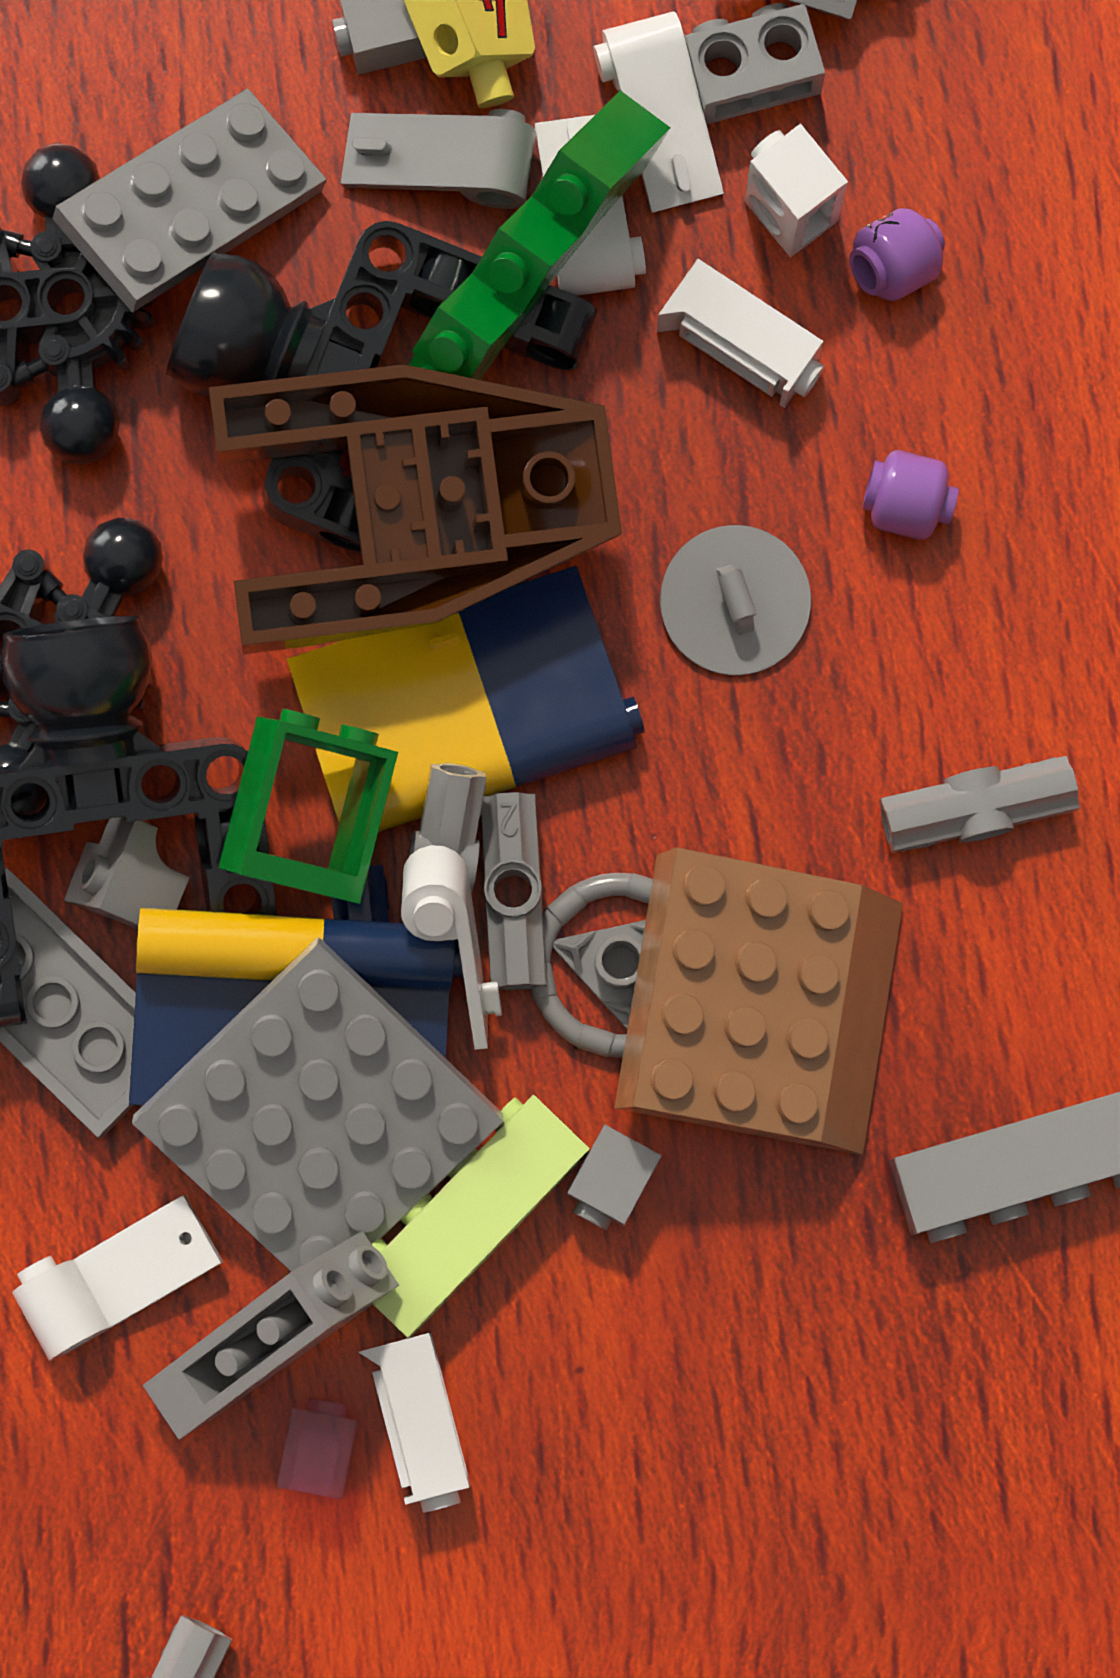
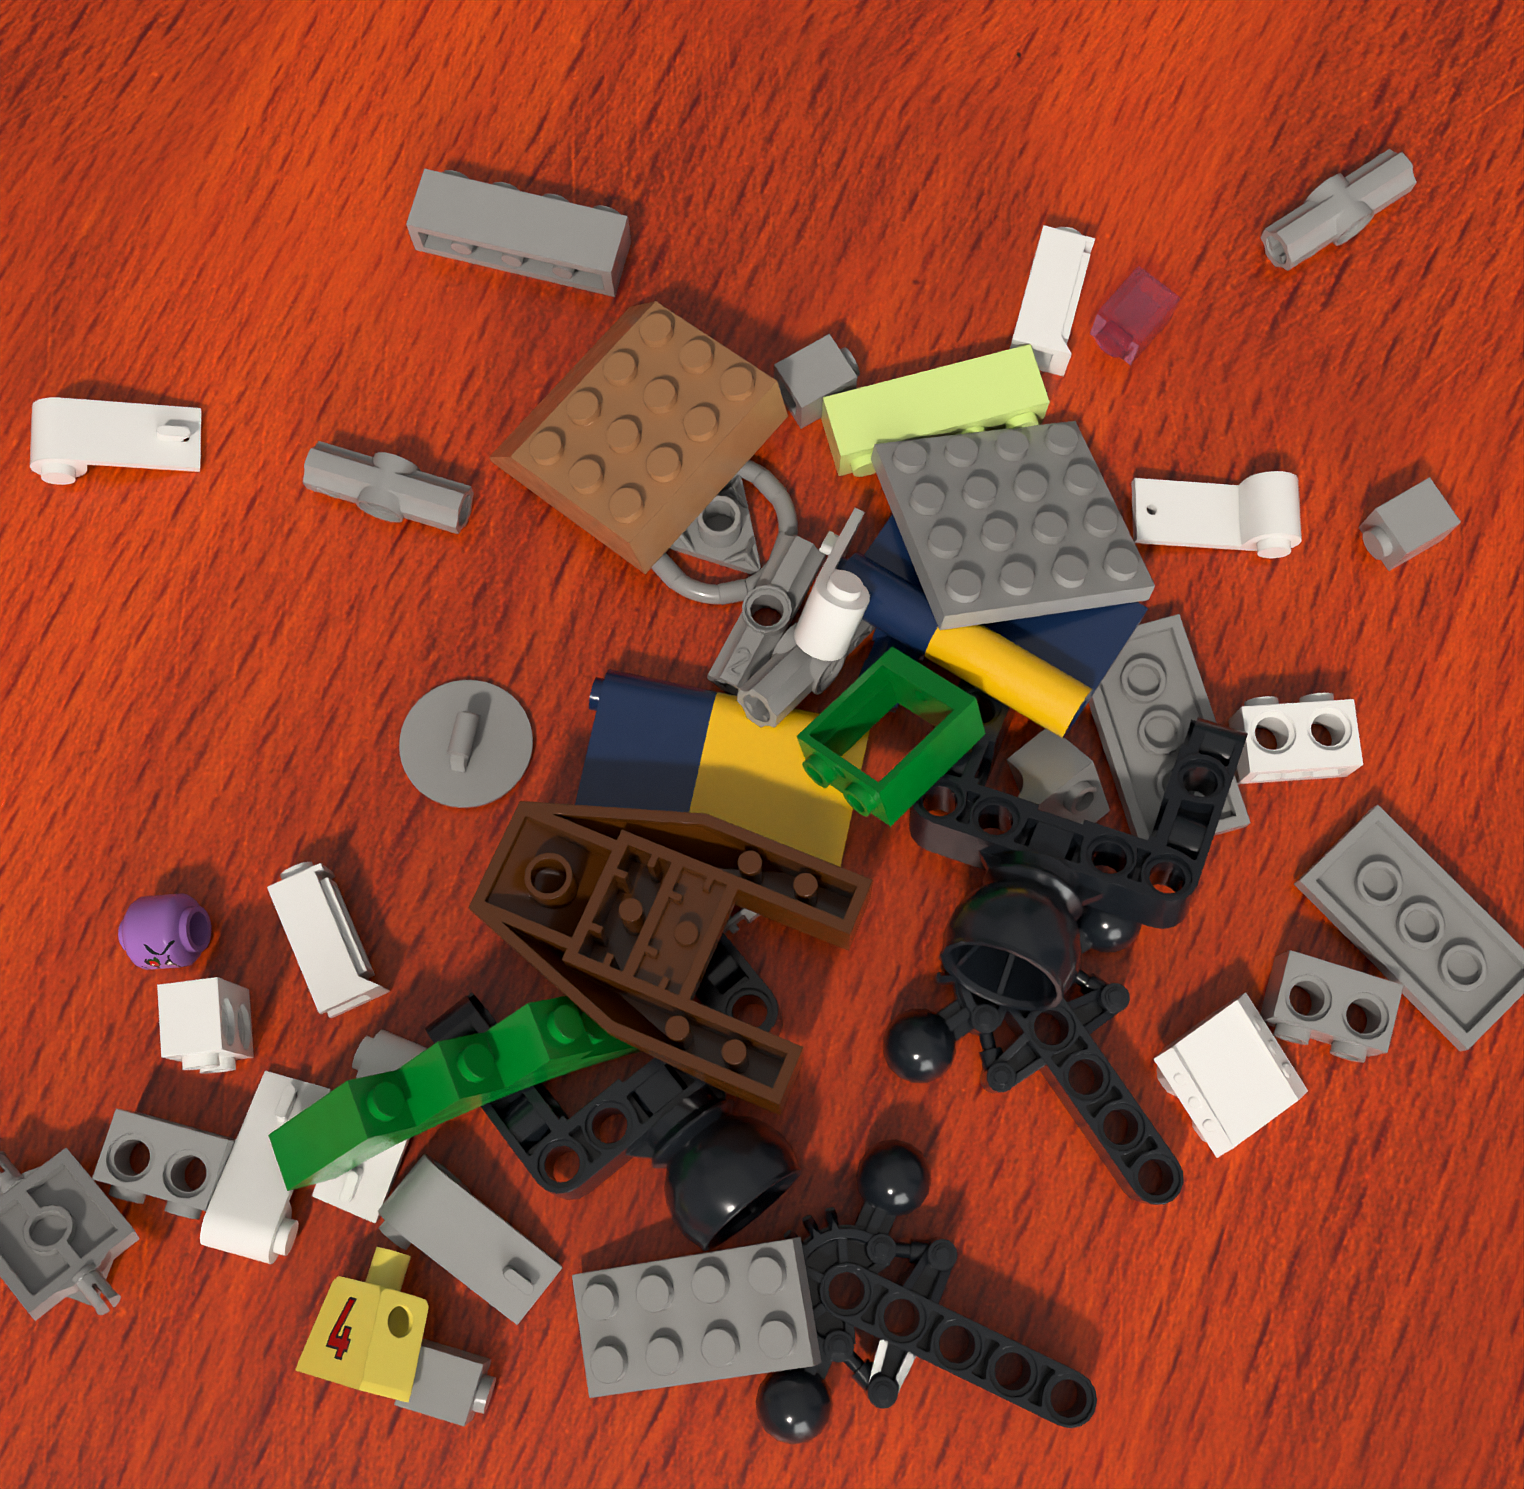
camera: 150 degrees left, 5 degrees down
(270, 1333) = (1127, 390): light grey slope -> none
(909, 495) = (284, 738): medium lavender head -> none

